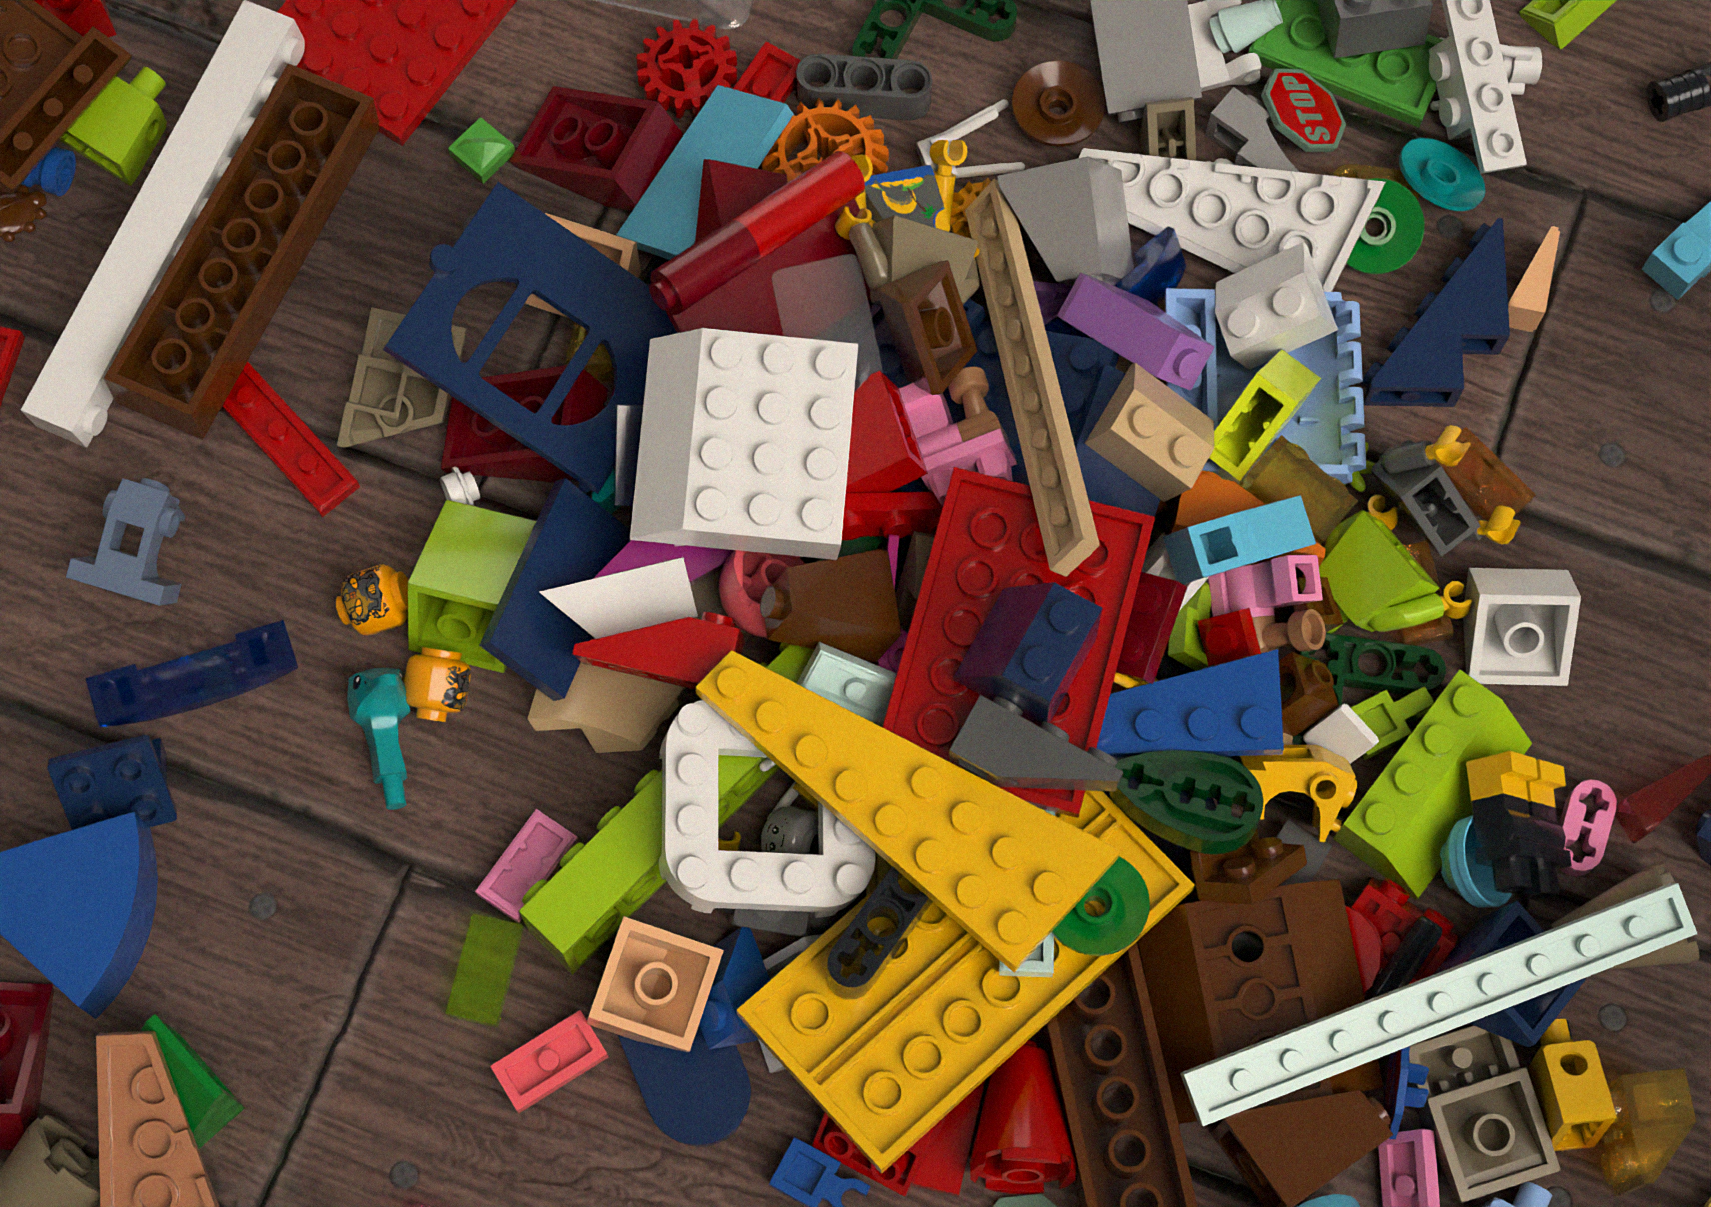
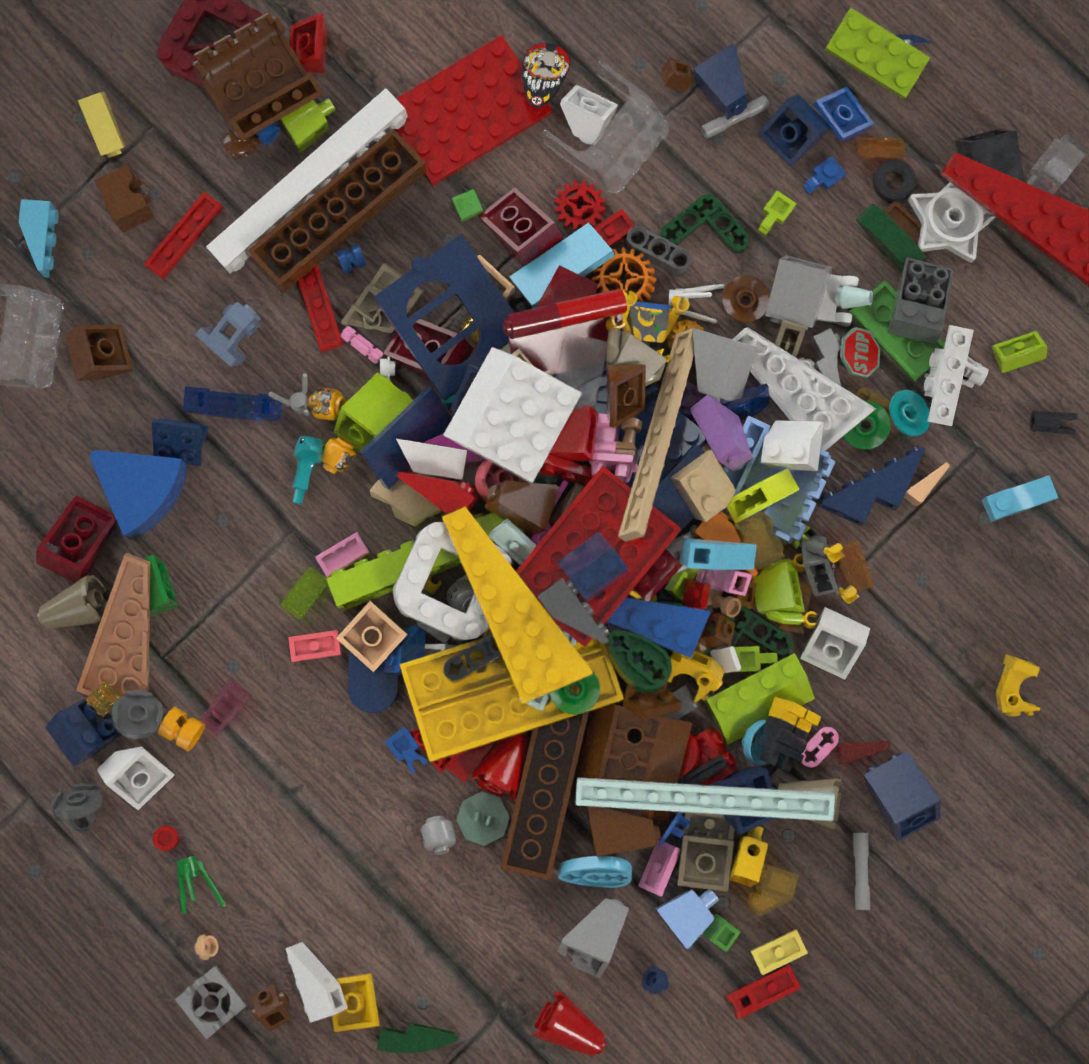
camera: 25 degrees right, 10 degrees up
(307, 324) = (351, 258): none -> blue wheel
(318, 617) = (298, 400): none -> light grey plant
(394, 468) = (362, 344): none -> bright pink axle

